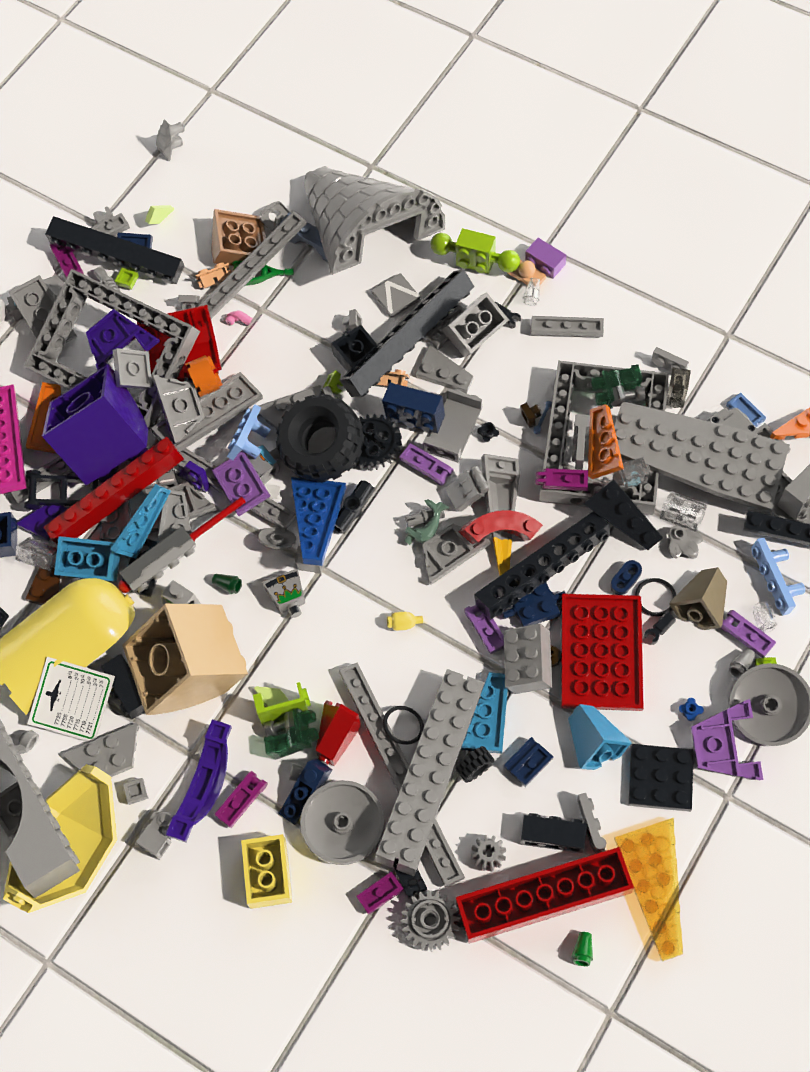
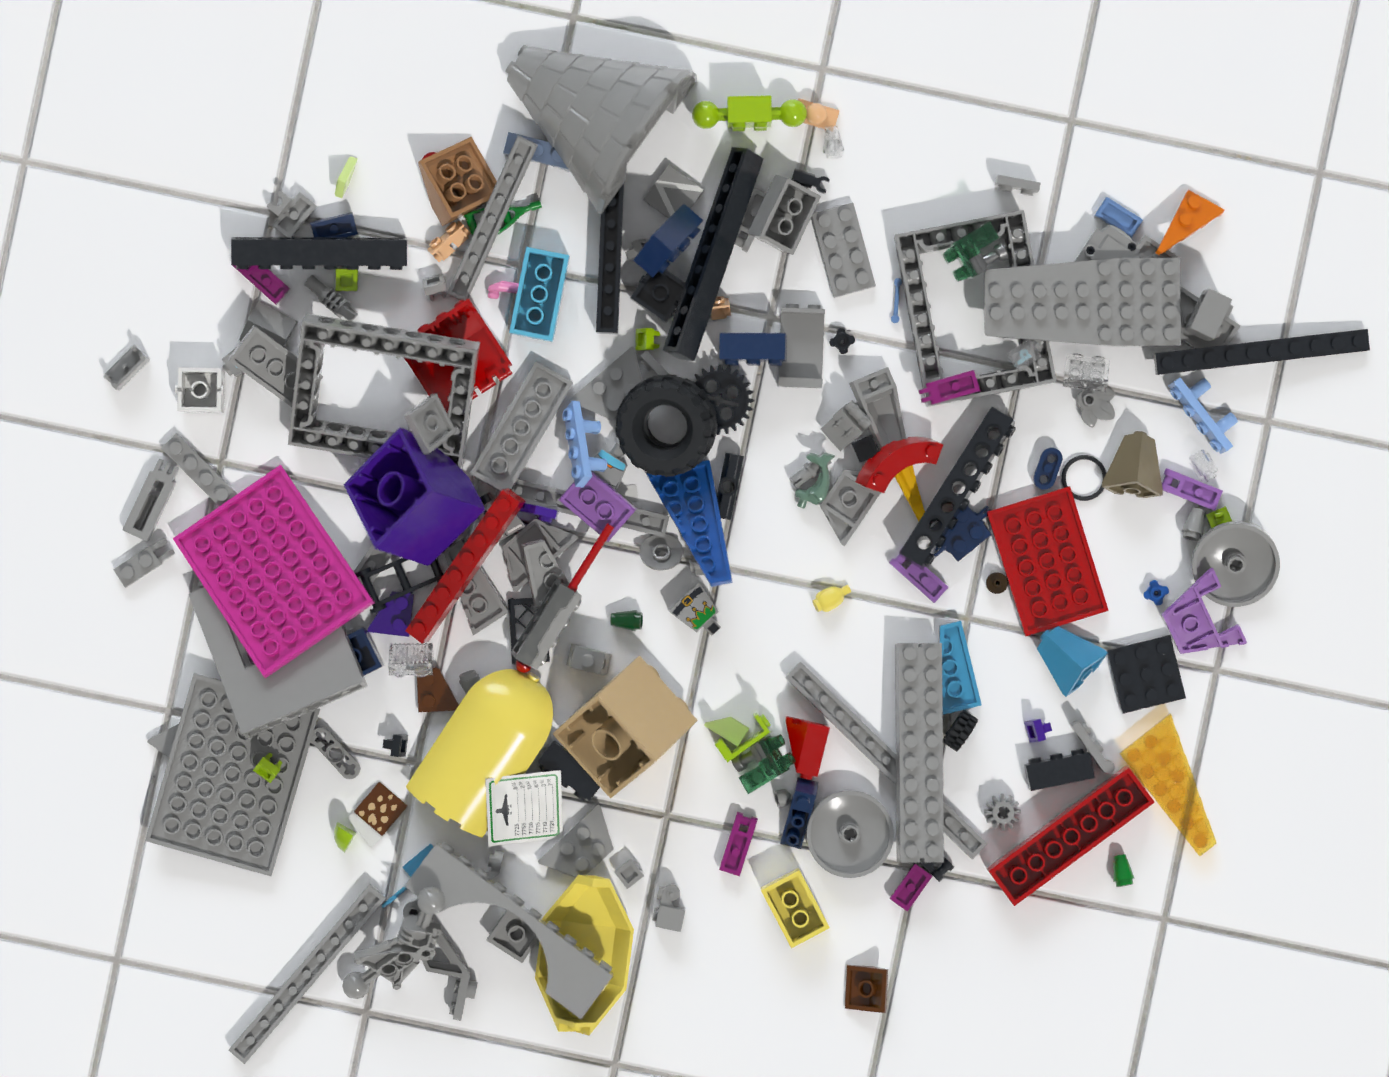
camera: 20 degrees left, 25 degrees up
(35, 440) = (341, 511): orange wing -> none
(86, 559) = (469, 649): dark azure brick -> none
(116, 332) = (388, 386): dark purple wing -> none
(137, 530) = (515, 593): dark azure wing -> none
(165, 141) = (310, 69): light grey connector -> none
(179, 405) = (494, 441): light grey wing -> none
(202, 375) = (504, 391): orange brick -> none
(205, 783) = (697, 844): dark purple piece -> none
(263, 326) = (539, 294): none -> medium azure brick
(275, 206) = (500, 128): light grey piece -> none
(302, 974) = (866, 988): none -> reddish brown slope
(329, 316) = (610, 266): none -> black brick
(376, 309) = (669, 241): none -> dark blue brick
(394, 738) = (886, 698): black tyre -> none
(426, 464) = (787, 405): medium lavender plate -> none
(433, 934) = (968, 910): light grey gear -> none
(443, 371) = (764, 279): light grey wing -> none
(475, 511) = (865, 448): none -> black plate
(513, 369) = (843, 250): none -> light grey plate
(527, 659) = (976, 600): light grey brick -> none
(528, 762) = (1010, 705): dark blue plate -> none
(530, 414) = (881, 306): dark brown tile -> none
(545, 791) = (1036, 730): none -> dark purple tile
(546, 257) = (831, 89): medium lavender brick -> none
(567, 326) = (886, 173): light grey plate -> none
(581, 429) = (950, 316): light grey plate -> none
(604, 451) = (980, 333): orange wing -> none
(619, 510) = (1024, 401): black wing -> none
(660, 627) = (1099, 512): black bar -> none
(678, 387) = (1038, 222): clear smoke brick -> none

